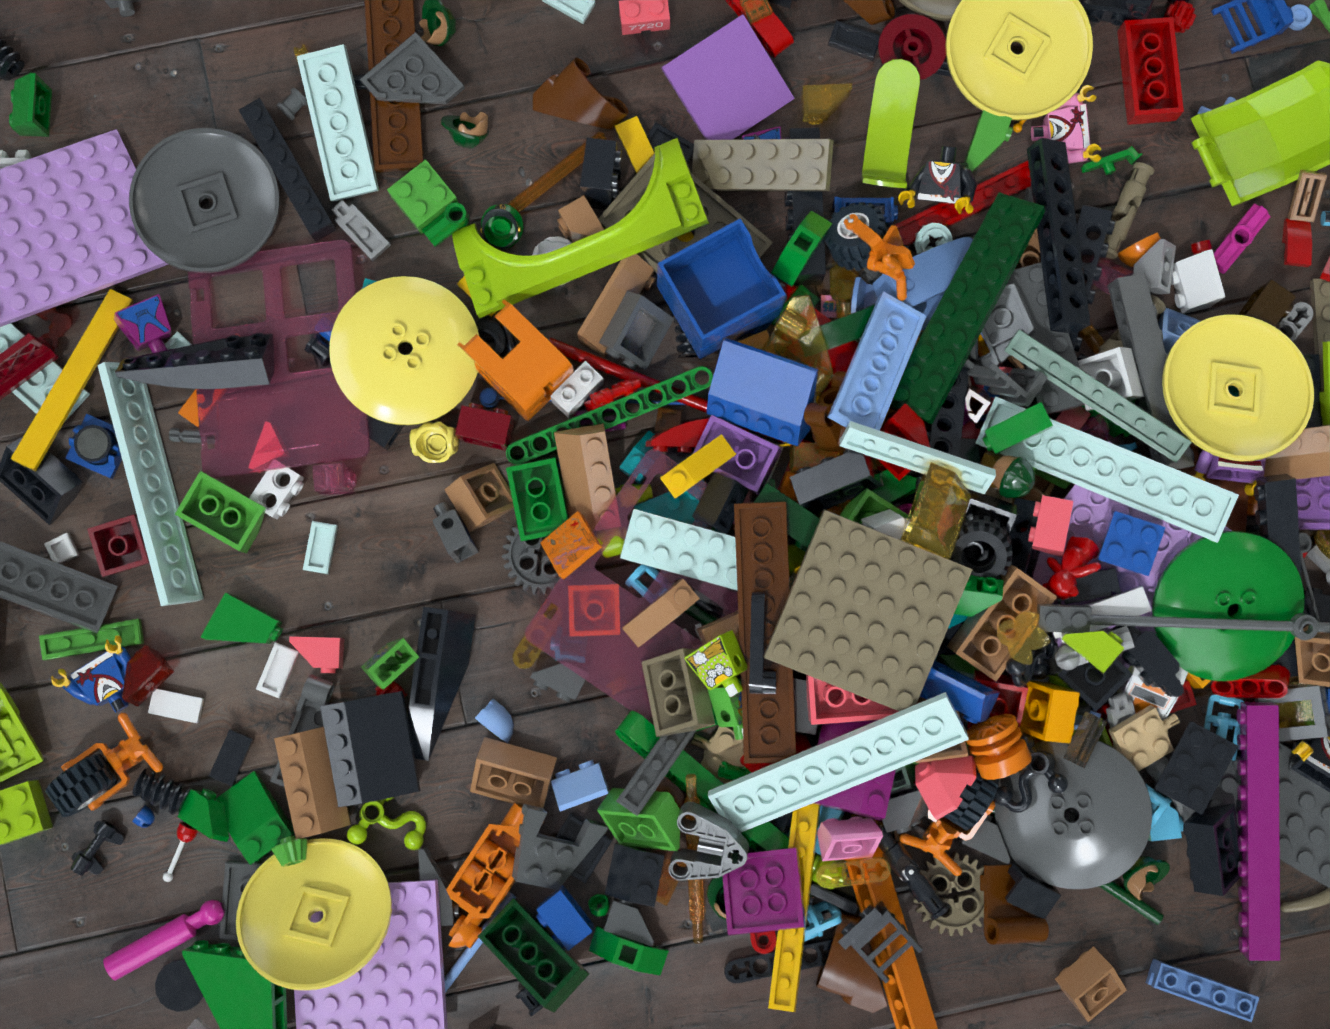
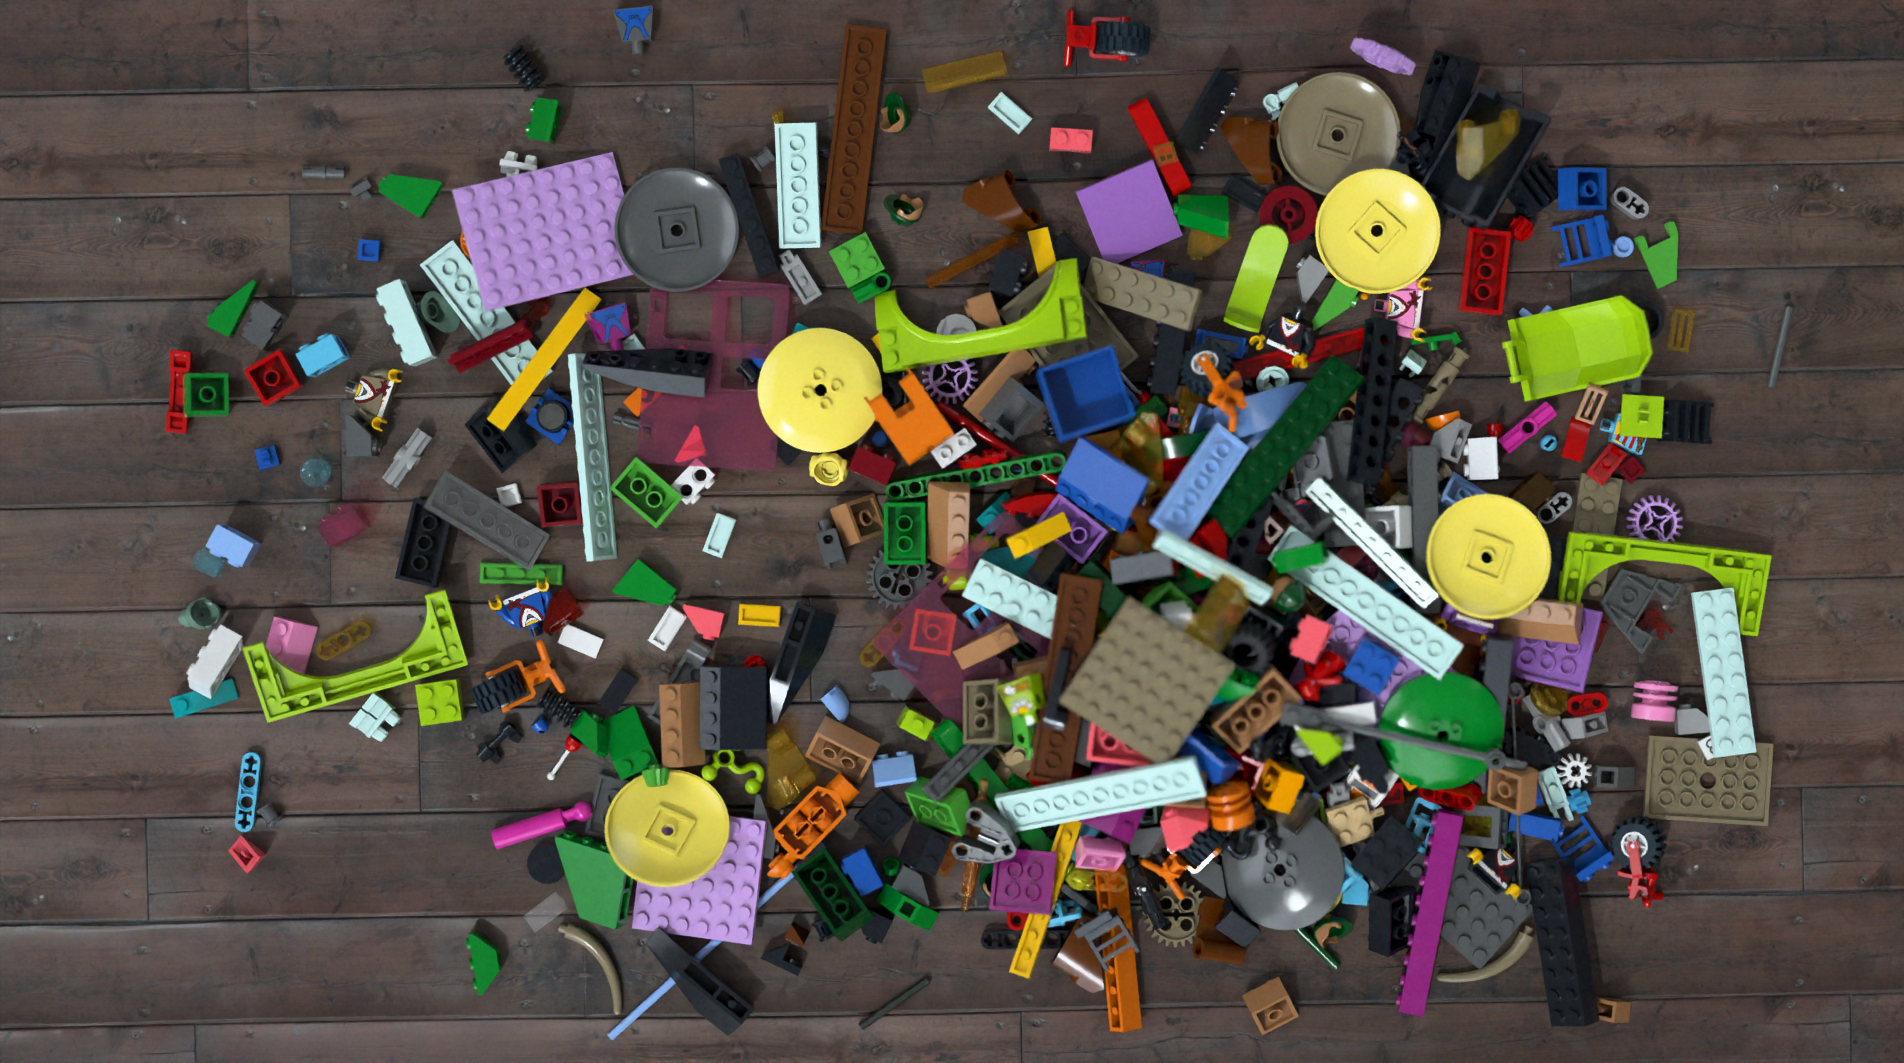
camera: 10 degrees right, 5 degrees up
(334, 479) = (742, 483): clear pink brick -> none
(382, 632) = (759, 615): none -> yellow tile
(388, 664) = (758, 644): bright green torso -> none
(412, 75) = (867, 157): dark grey plate -> none
(451, 812) = (786, 770): none -> clear yellow panel
(500, 1012) = (797, 934): none -> reddish brown slope
(501, 226) = (917, 297): green piece -> none
(548, 859) = (859, 823): dark grey wing -> none
(565, 301) = (958, 392): none -> lavender gear
(570, 545) = (924, 577): orange tile -> none
(596, 724) = (916, 723): none -> lime torso
(597, 983) = (877, 928): none -> black slope
(801, 248) = (1159, 372): green slope -> none
(814, 66) = (1203, 213): none -> green slope
(950, 115) = (1309, 276): none -> light grey slope
(1026, 639) = (1269, 726): clear yellow plate -> none
(1090, 189) = (1414, 362): none -> light aqua tile
(1202, 990) = (1357, 1027): medium blue brick -> none
(1262, 249) = (1545, 439): none -> medium azure hinge

